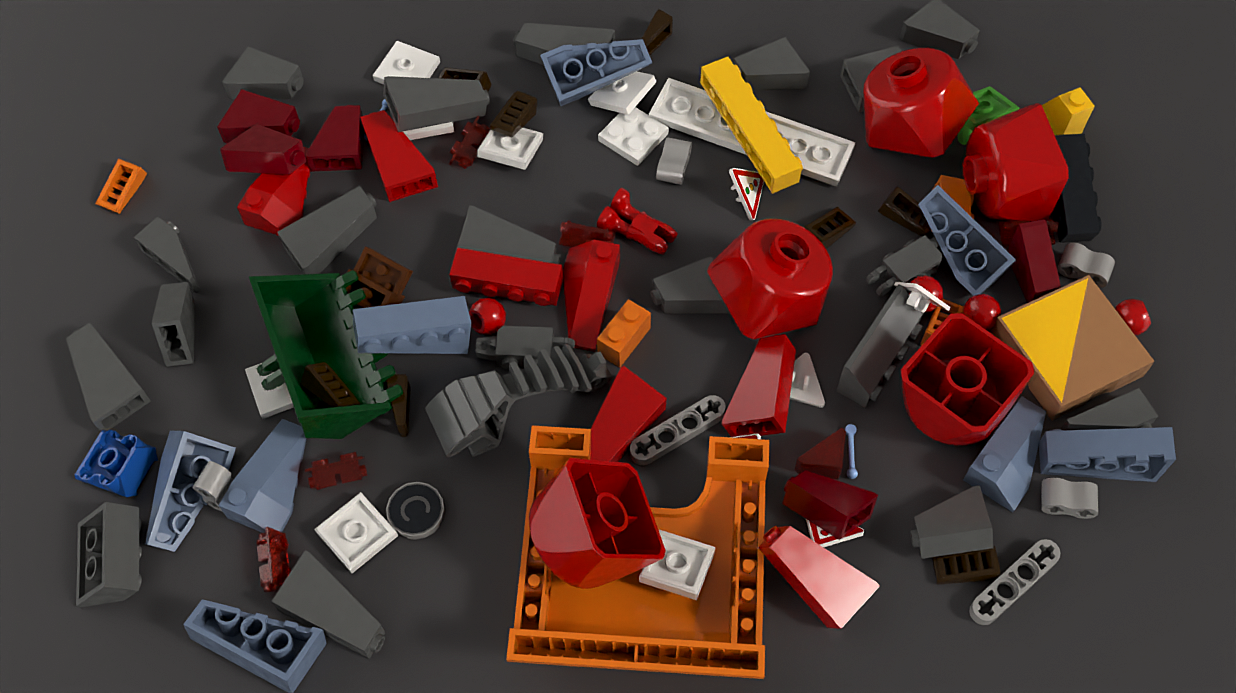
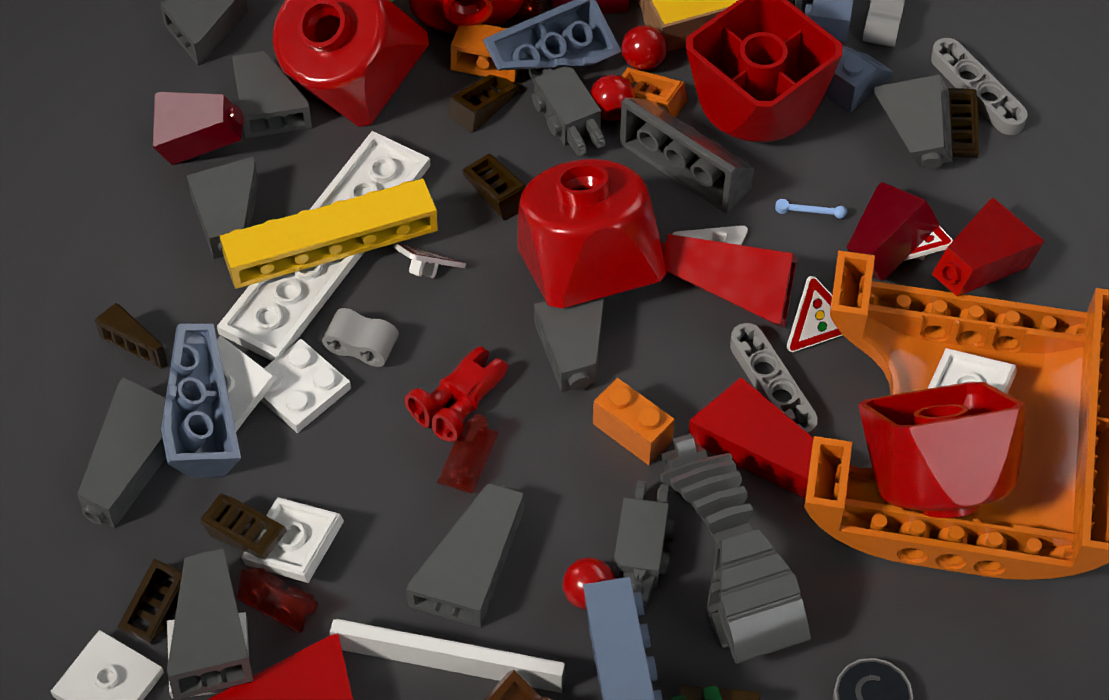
camera: 85 degrees left, 5 degrees down
(430, 236) = (447, 654): none -> white tile
(506, 276) = (528, 554): red brick -> none
(588, 286) = (549, 457): red wedge -> none
(825, 457) = (821, 228): clear red slope -> none
(831, 34) = (194, 124): none -> slope
(920, 297) = (639, 87): white piece -> none

